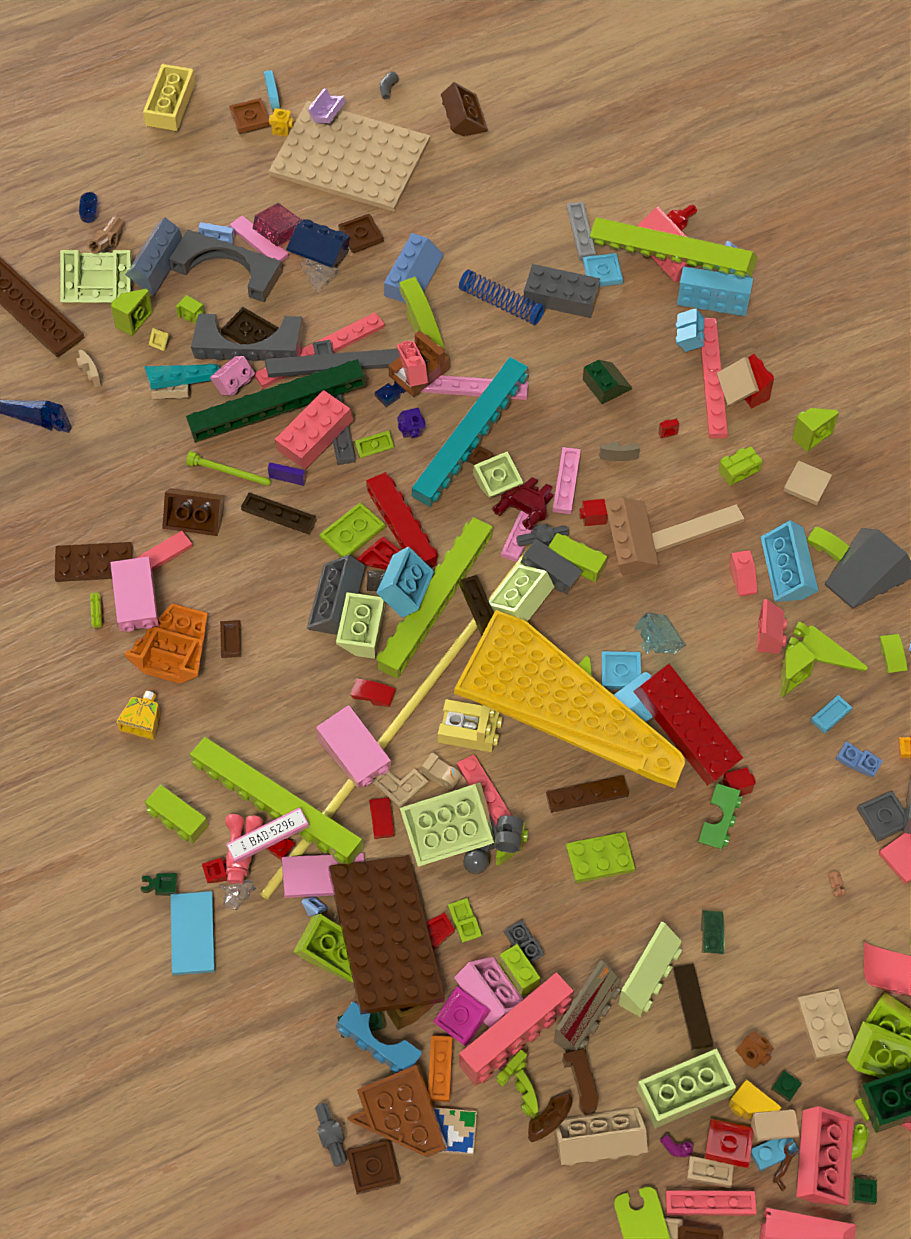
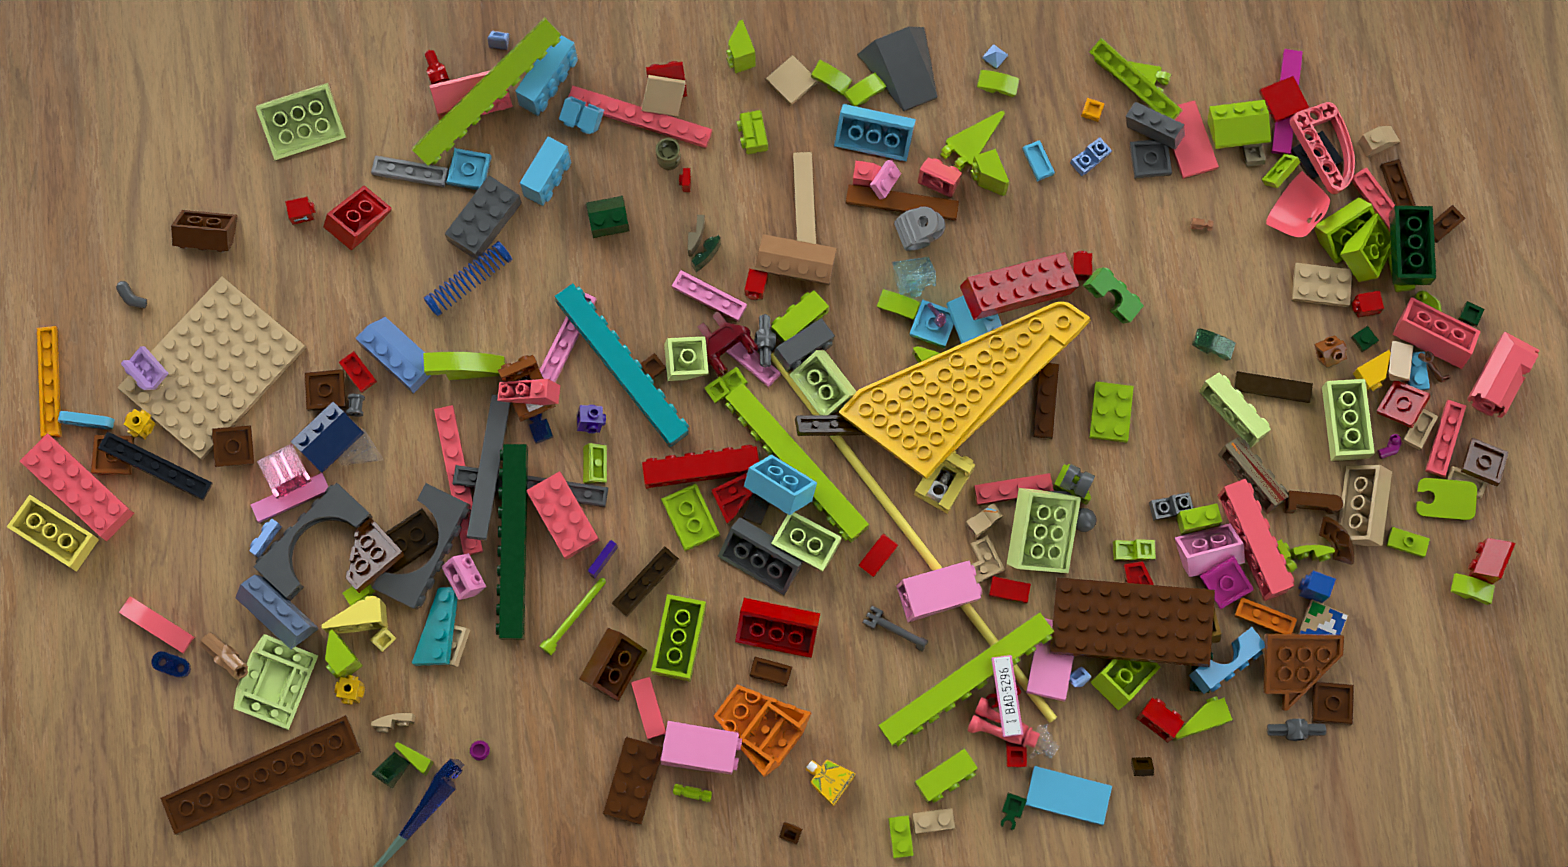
camera: 70 degrees left, 15 degrees up
(44, 379) = (391, 769): none -> clear green slope
(62, 391) = (419, 761): none -> lime slope
(83, 699) = (790, 832): none -> reddish brown slope
(84, 438) = (479, 750): none -> magenta plate
(105, 329) = (356, 692): none -> yellow brick
(106, 795) = (901, 836): none -> lime plate
(117, 188) = (156, 624): none -> coral slope
(130, 819) = (933, 821): none -> tan plate
(170, 313) = (361, 616): none -> light yellow slope
(212, 101) = (77, 487): none -> coral brick
(225, 304) = (371, 555): none -> plate
(233, 551) = (678, 638): none -> lime brick
(242, 992) = (1142, 766): none -> dark brown plate
(249, 142) = (155, 466): none -> black plate
(272, 629) = (777, 627): none -> red slope
(286, 186) = (233, 446): none -> reddish brown plate
(295, 992) = (1160, 719): none -> red slope
(296, 59) = (49, 381): none -> light orange tile
(310, 712) = (877, 619): none -> dark grey hinge
(312, 1038) = (1210, 715): none -> lime slope
(356, 256) = (355, 405): none -> dark grey bush
(385, 249) = (357, 371): none -> red plate
(486, 515) = (724, 385): none -> lime slope
(488, 1106) = (1316, 586): none -> blue brick
(509, 166) = (300, 210): none -> red brick
(521, 205) = (356, 217): none -> red slope
(578, 1196) = (1408, 542): none -> lime plate
(589, 142) = (301, 121): none -> yellowish green slope
(611, 467) = (710, 249): none -> clear green slope
(623, 318) = (545, 171): none -> medium azure brick
(625, 671) = (940, 318): none -> clear pink hand
(626, 634) = (898, 304): none -> lime slope
(686, 405) = (668, 153): none -> olive wheel
(704, 625) = (913, 229): none -> light grey piece
(731, 610) = (901, 201): none -> dark orange tile
(745, 583) = (885, 179): none -> bright pink plate
(825, 1075) = (1368, 304): none -> red brick
(826, 511) = (831, 77): none -> lime slope

